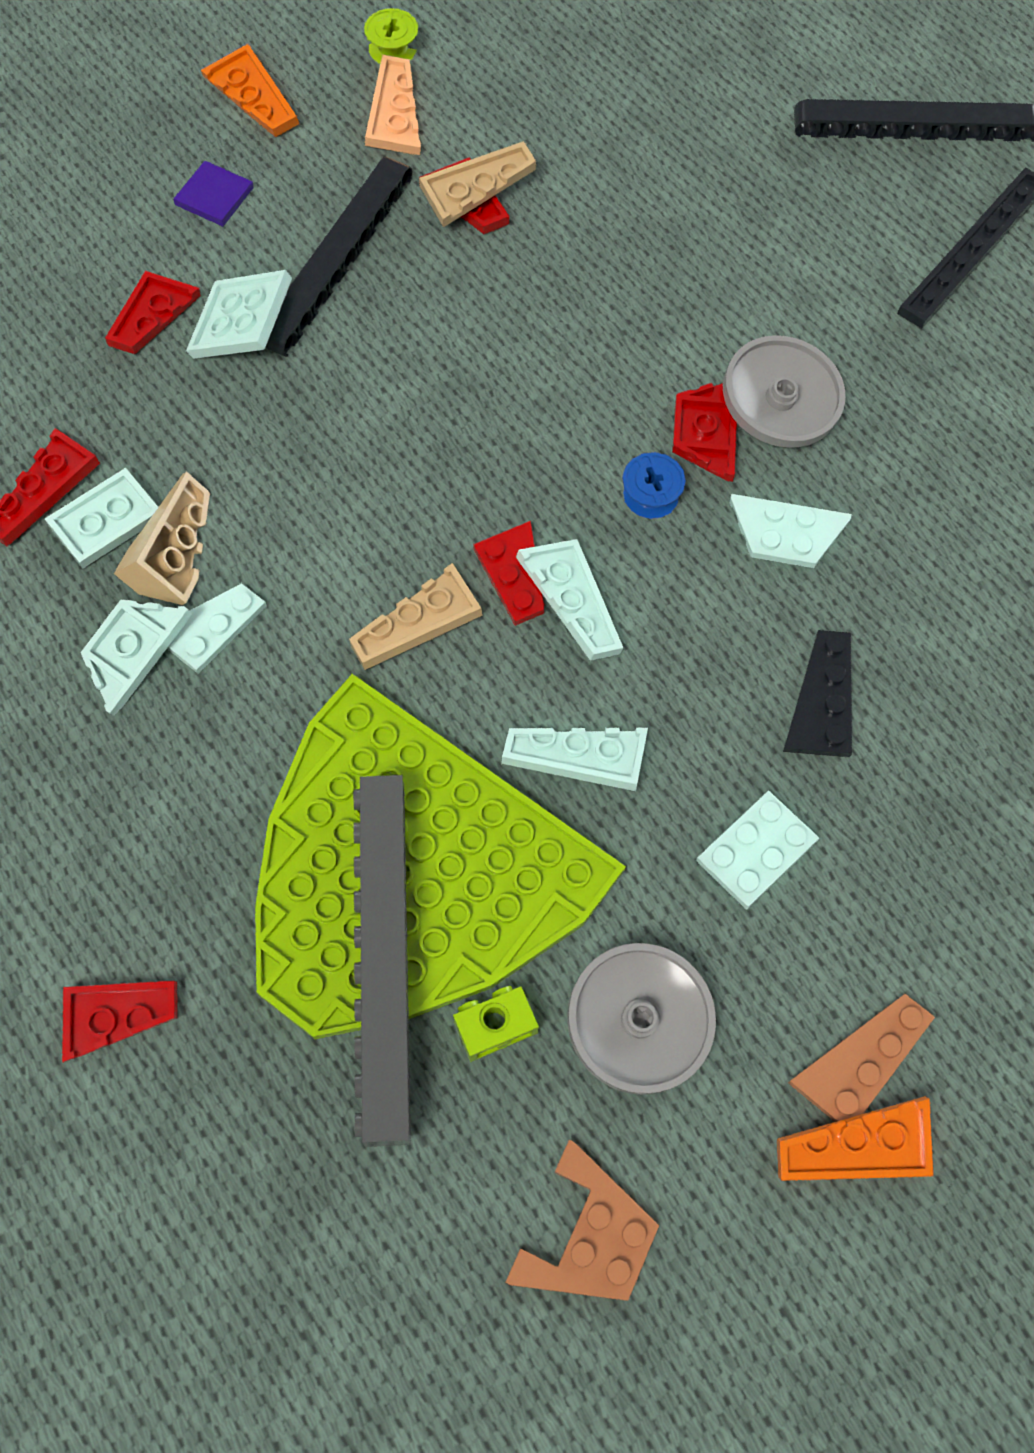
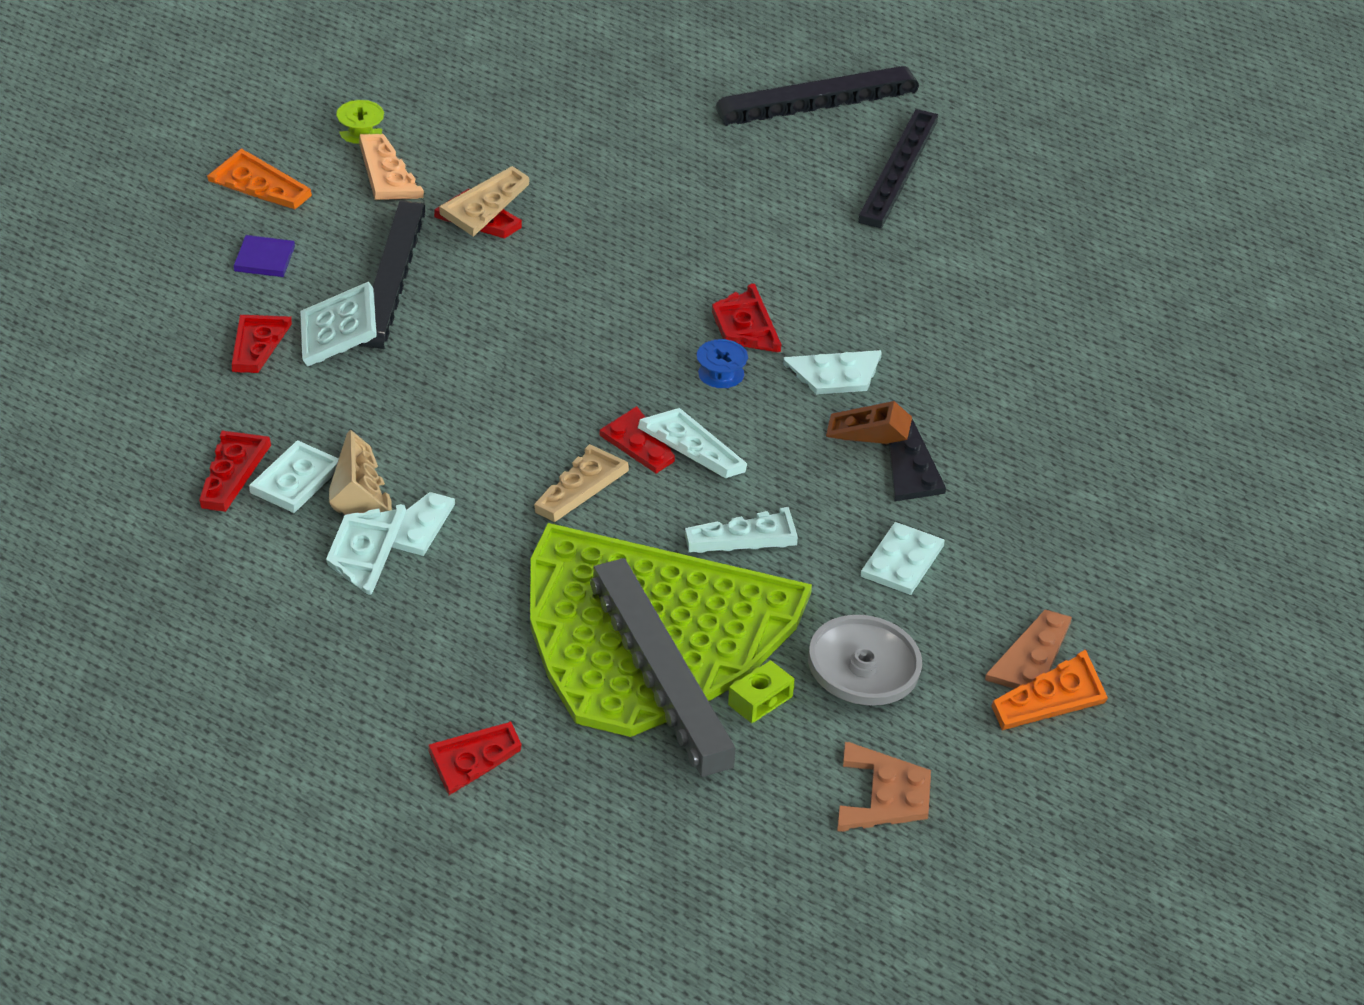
camera: 20 degrees left, 25 degrees down
(783, 391) = (795, 283): light grey dish -> none
(793, 633) = (872, 423): none -> dark orange slope

